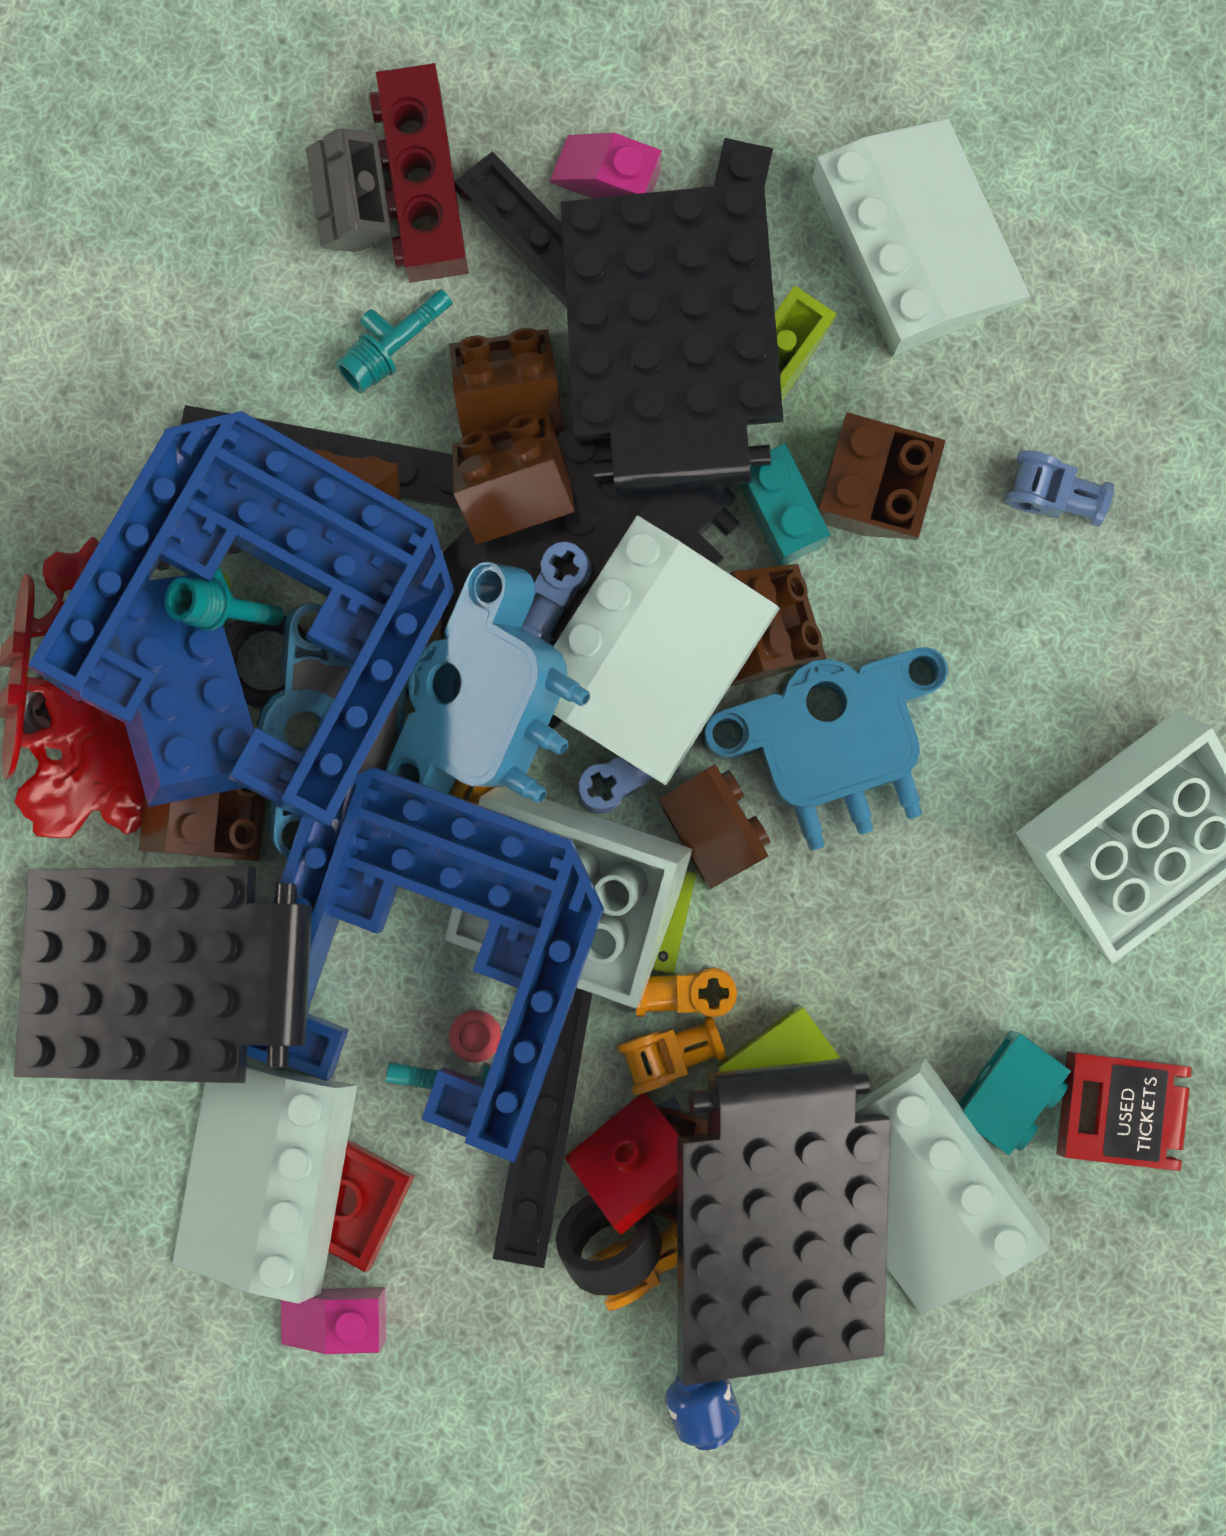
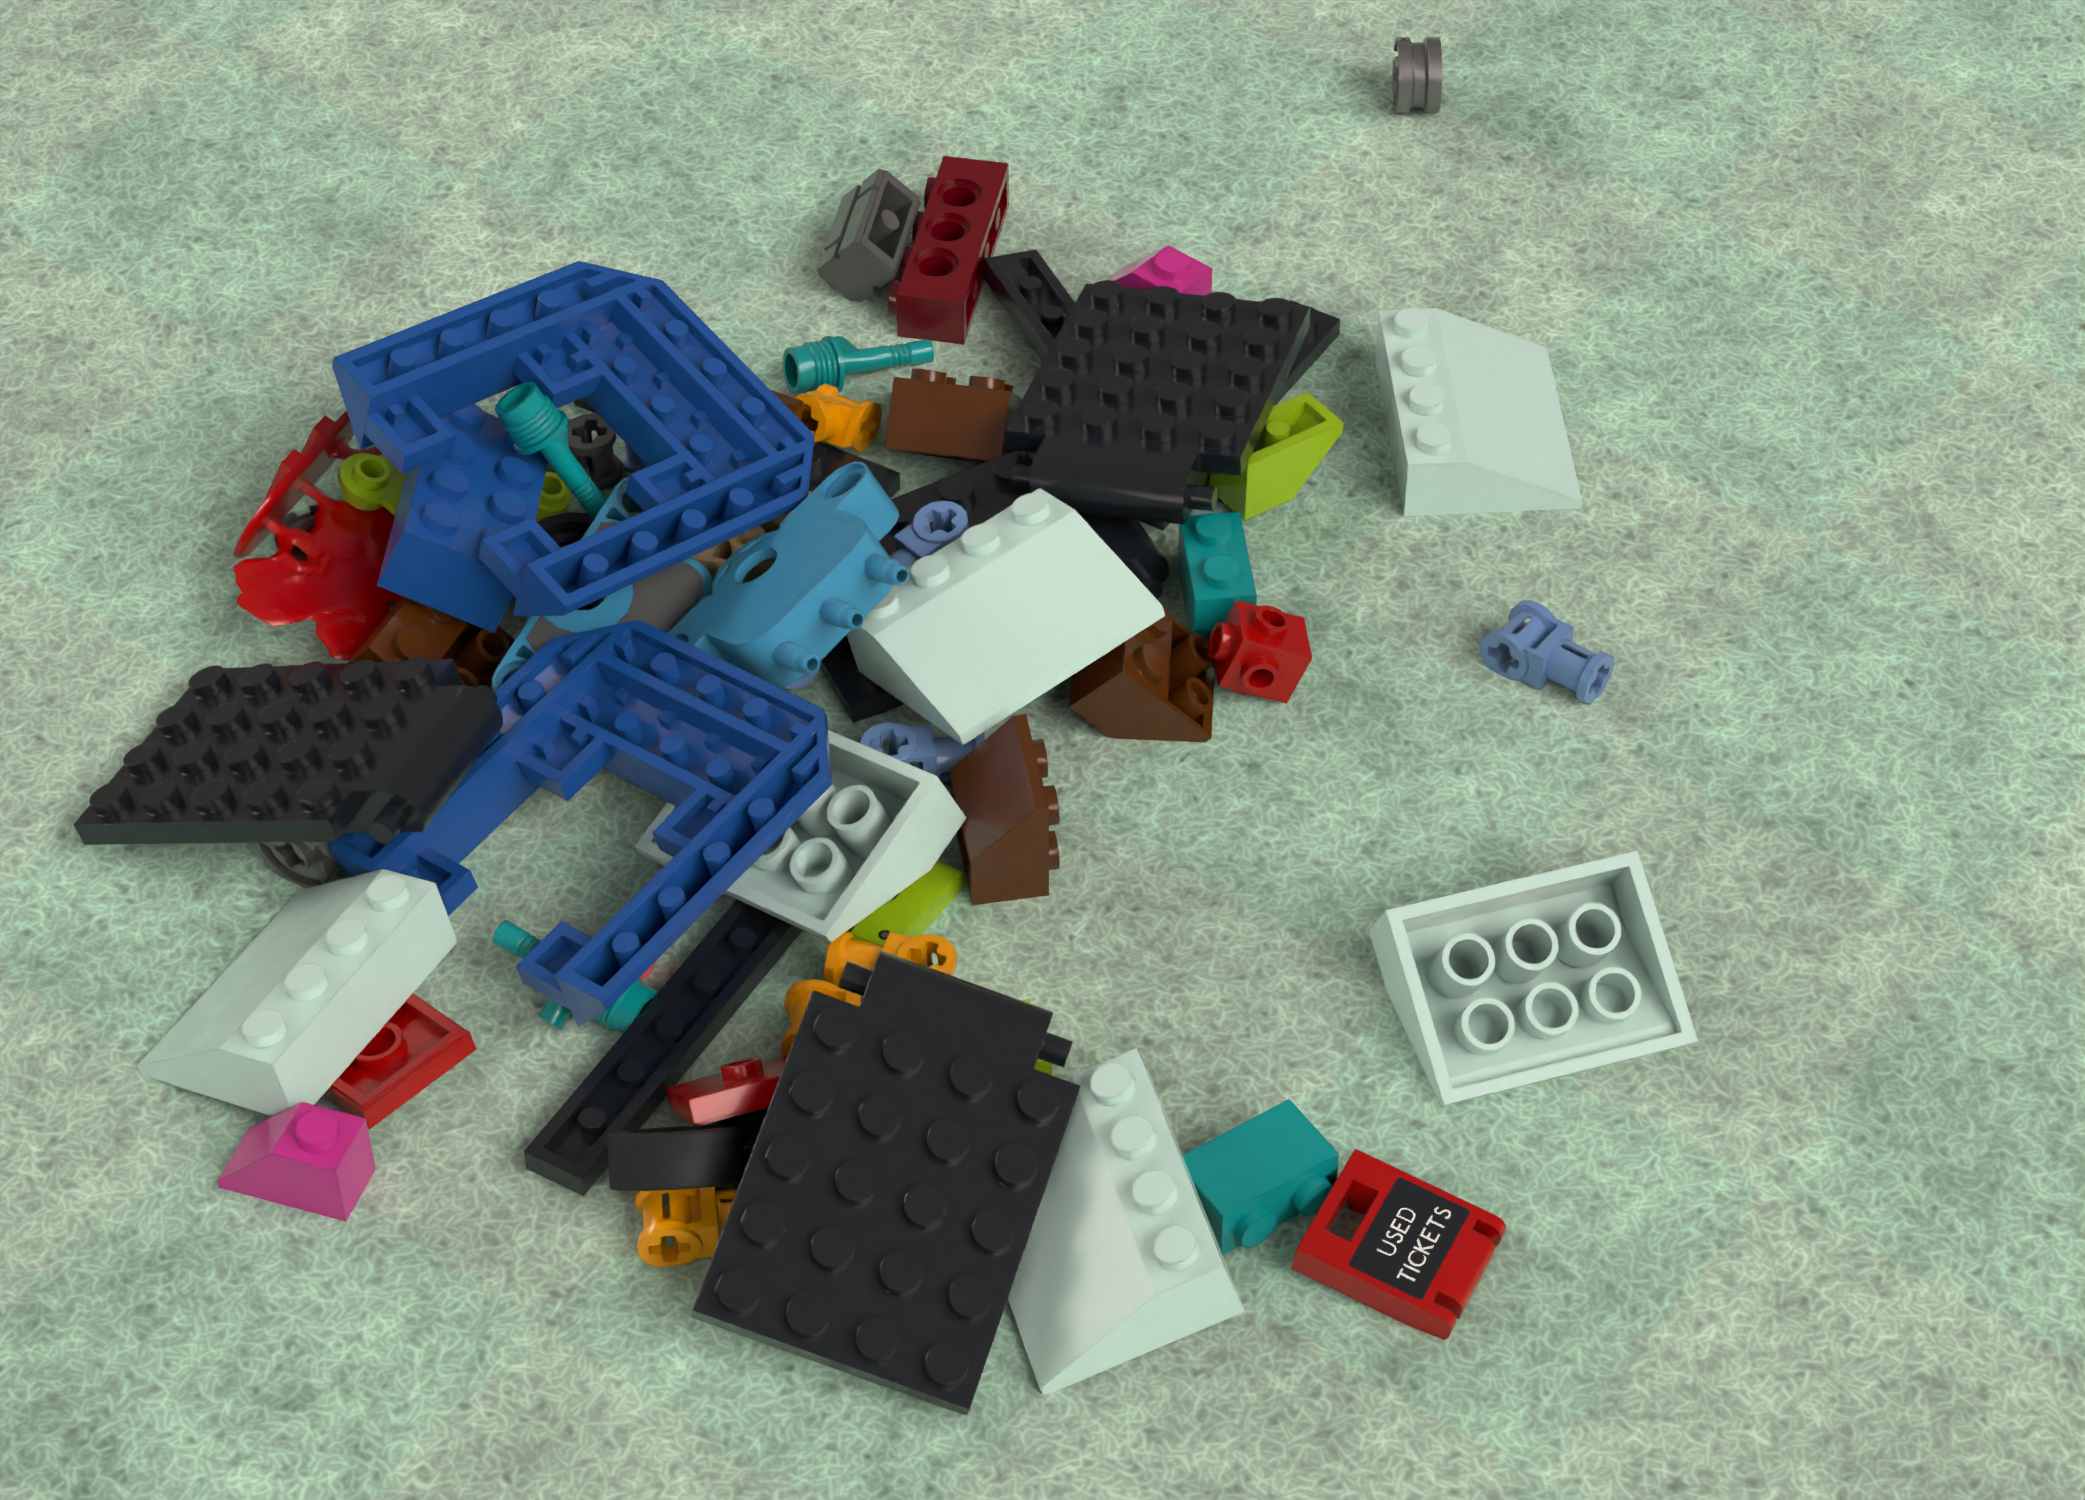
camera: 20 degrees right, 40 degrees down
(407, 428) = (840, 419): none -> light orange connector
(511, 477) = (923, 453): reddish brown slope -> none
(703, 1412) = (705, 1382): blue head -> none
(841, 758) = (1189, 796): dark azure piece -> none
(844, 576) = (1260, 651): none -> red brick
(879, 479) = (1334, 574): reddish brown slope -> none

